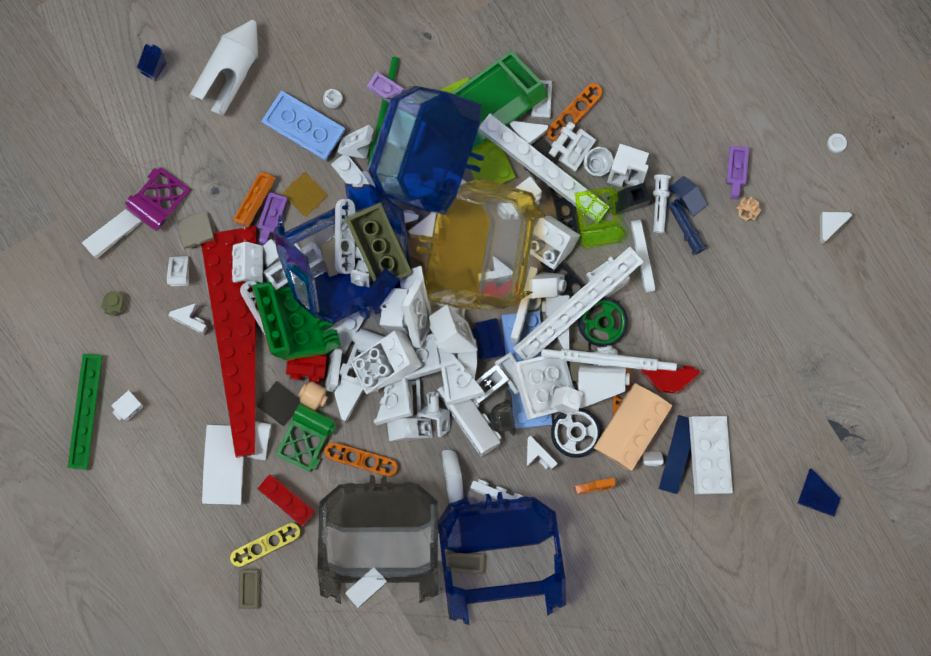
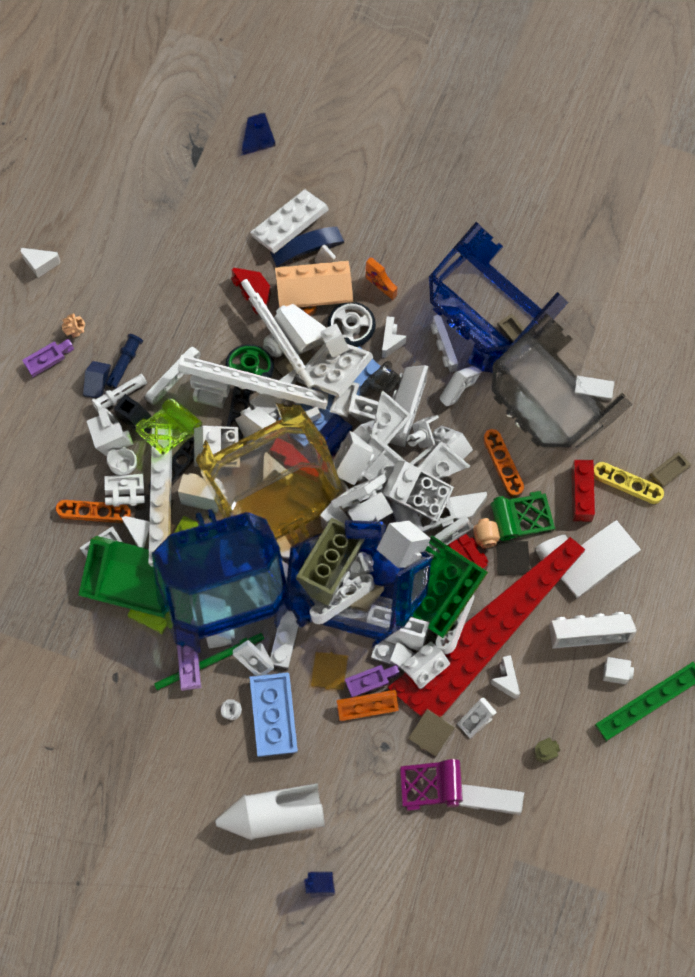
camera: 130 degrees left, 10 degrees down
(171, 411) = (591, 630): none -> white slope
(343, 306) = (403, 543): none -> white plate

